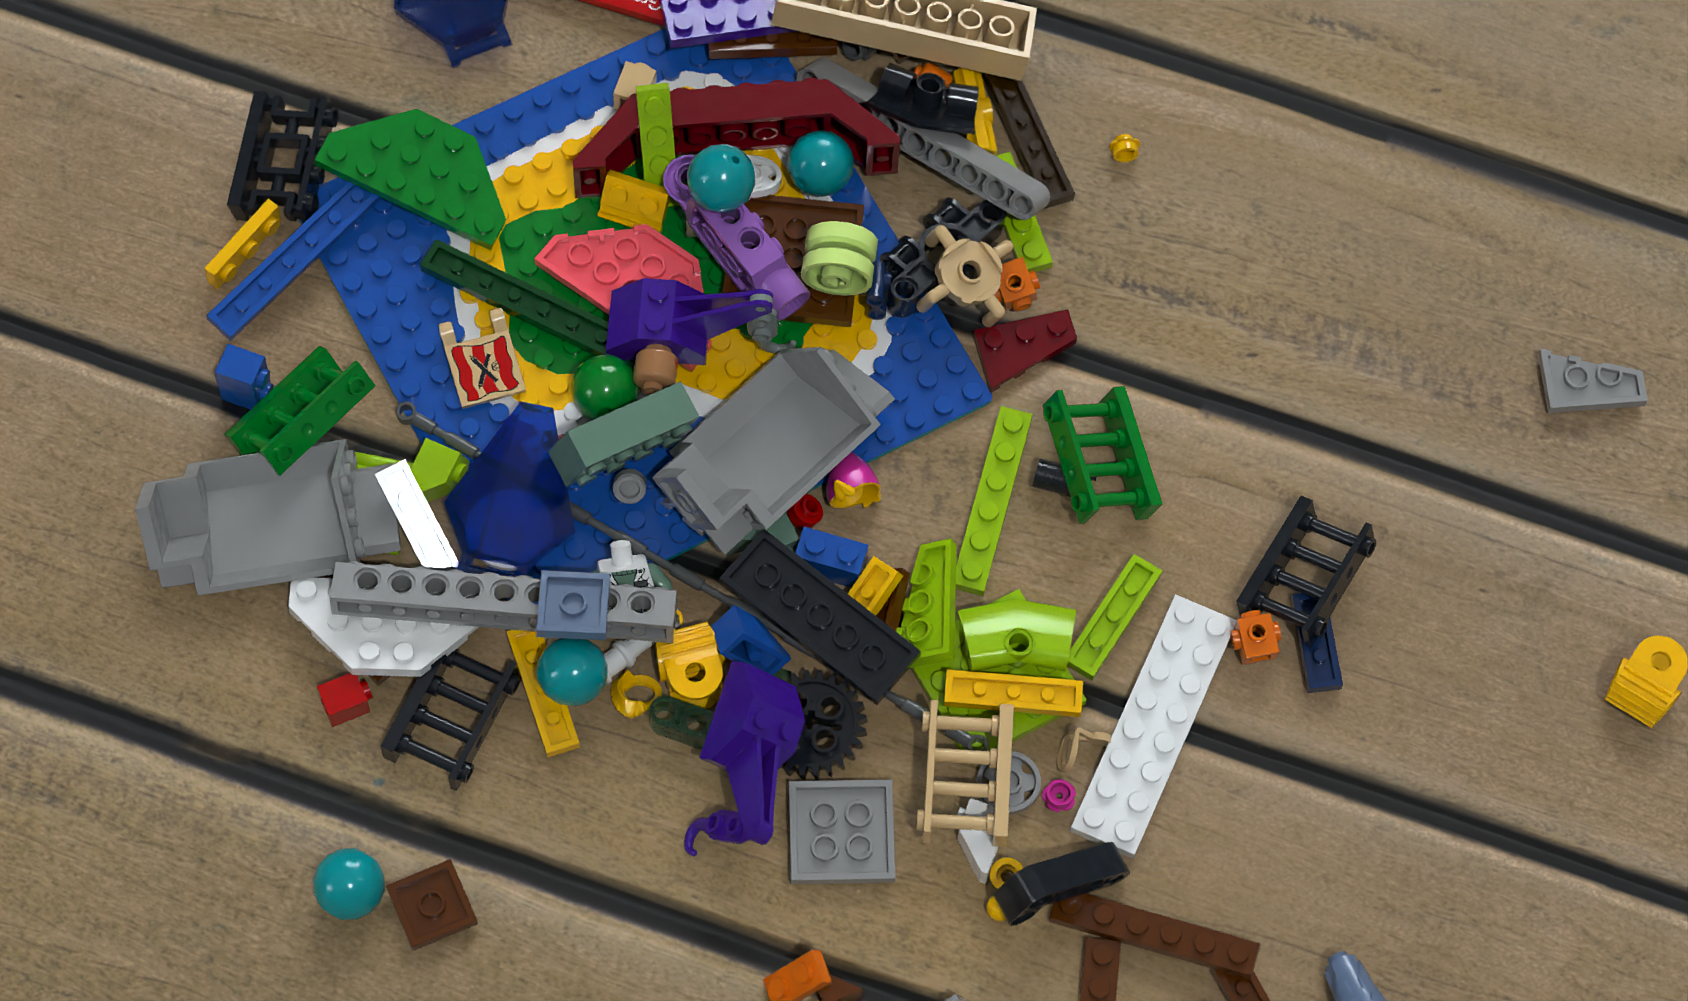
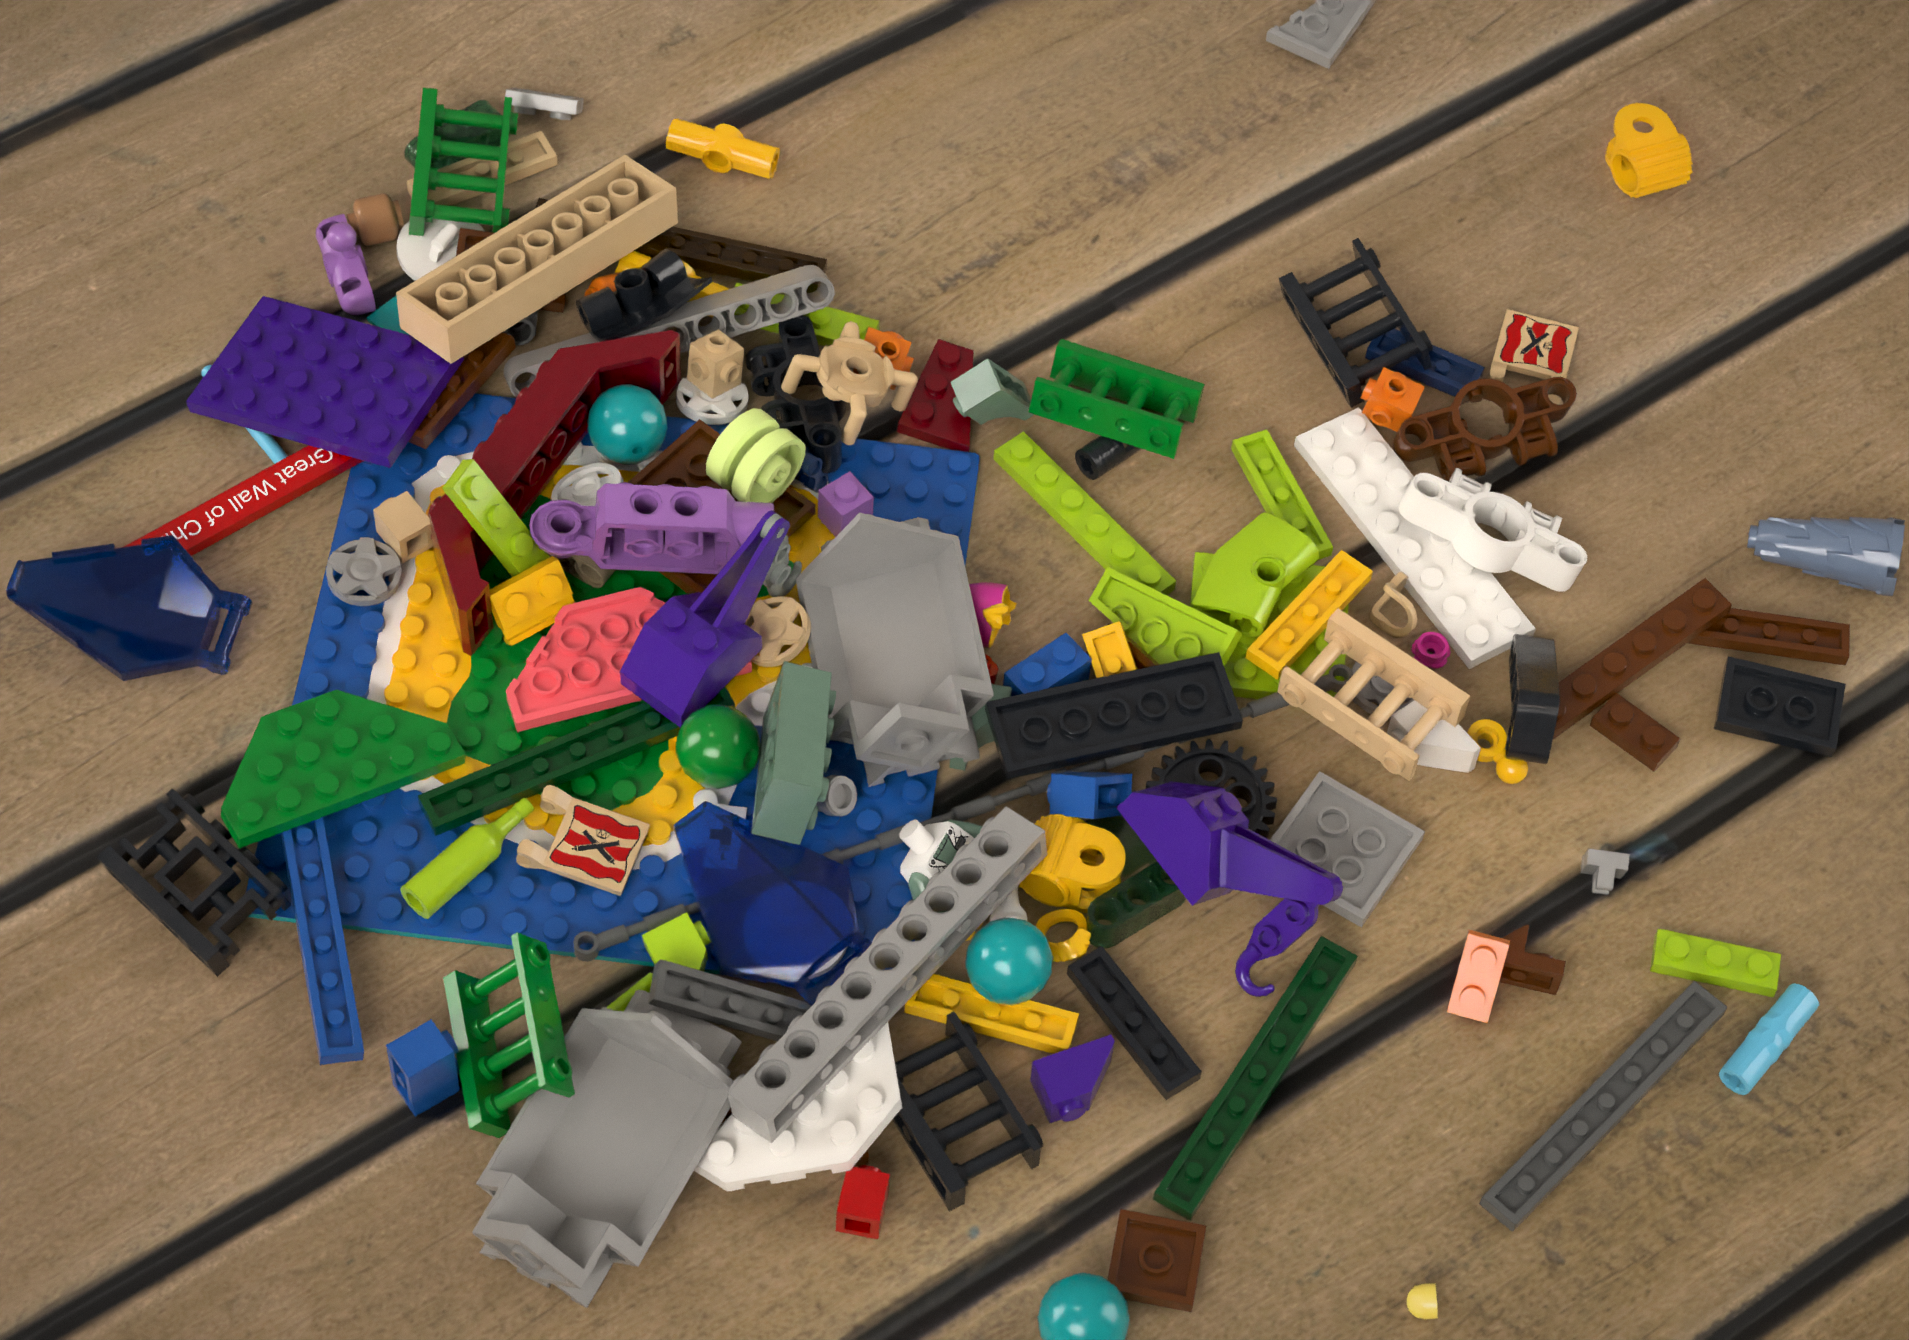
camera: 55 degrees left, 10 degrees down
(243, 244) = (262, 980): yellow plate -> none
(409, 298) = (461, 862): none -> lime piece
(528, 770) = (1071, 1078): none -> dark purple slope
(573, 605) = (959, 898): sand blue plate -> none
(586, 90) = (364, 571): none -> light grey wheel
(601, 782) = (1134, 1023): none -> black plate
(618, 885) = (1254, 1079): none -> dark green plate
(655, 368) = (744, 682): medium nougat head -> none
(721, 178) = (616, 472): teal piece -> none
(728, 361) = (778, 629): none -> tan wheel
(864, 341) = (842, 501): none -> medium lavender brick
(900, 201) = (702, 403): none -> white wheel
(918, 183) = (715, 363): none -> tan brick
(1038, 371) = (990, 394): none -> sand green arch
(1119, 65) = (722, 148): none -> yellow piece
(1124, 148) = (809, 197): yellow plate -> none
(1203, 740) = (1533, 543): none -> white piece
(1319, 733) = (1453, 446): none -> reddish brown piece
(1397, 711) = (1533, 348): none -> flag

